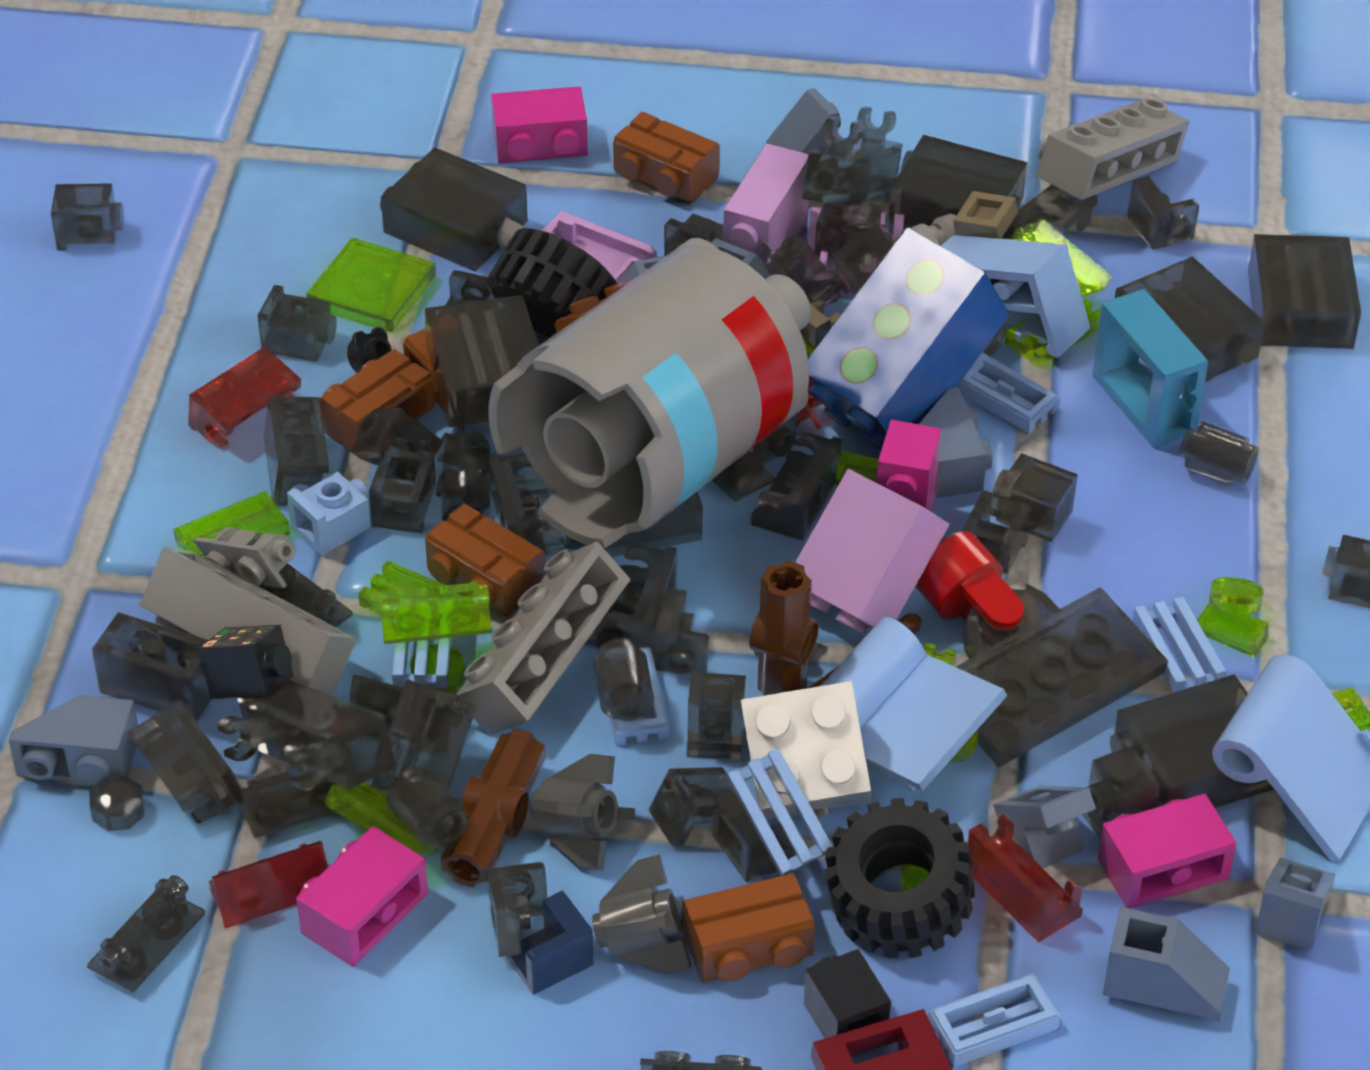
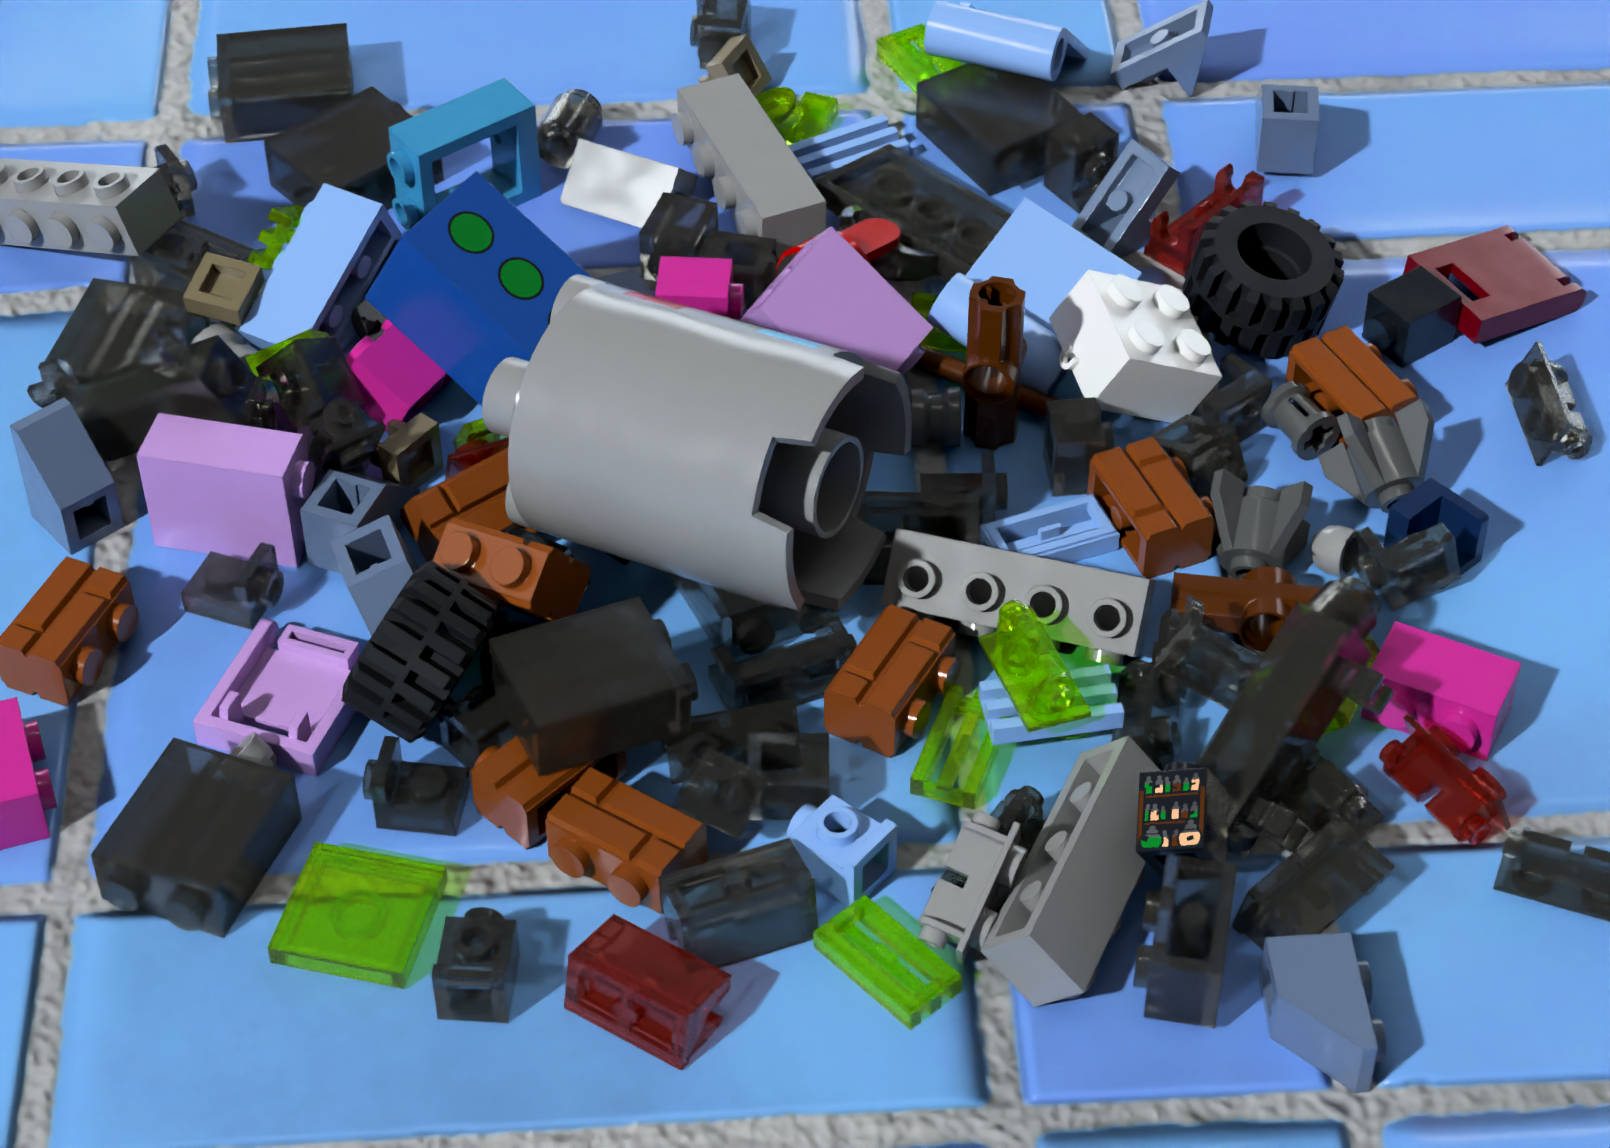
camera: 100 degrees left, 0 degrees up
(116, 803) = (1392, 958): clear smoke tile -> none
(367, 347) = (525, 868): black plate -> none
(560, 872) = (1335, 550): none -> light grey hinge
(623, 680) = (1070, 509): clear smoke brick -> none
(643, 746) = (1153, 507): none -> dark orange brick
(720, 877) = (1301, 420): none -> dark grey bush
(757, 769) = (1232, 336): light blue tile -> none
(1000, 1026) = (1363, 242): light blue tile -> none
(1138, 553) = (748, 162): none -> light grey brick
(1147, 488) = (620, 183): none -> panel
(1166, 850) = (1145, 116): dark pink brick -> none
(1293, 573) = (739, 57): none -> dark tan tile

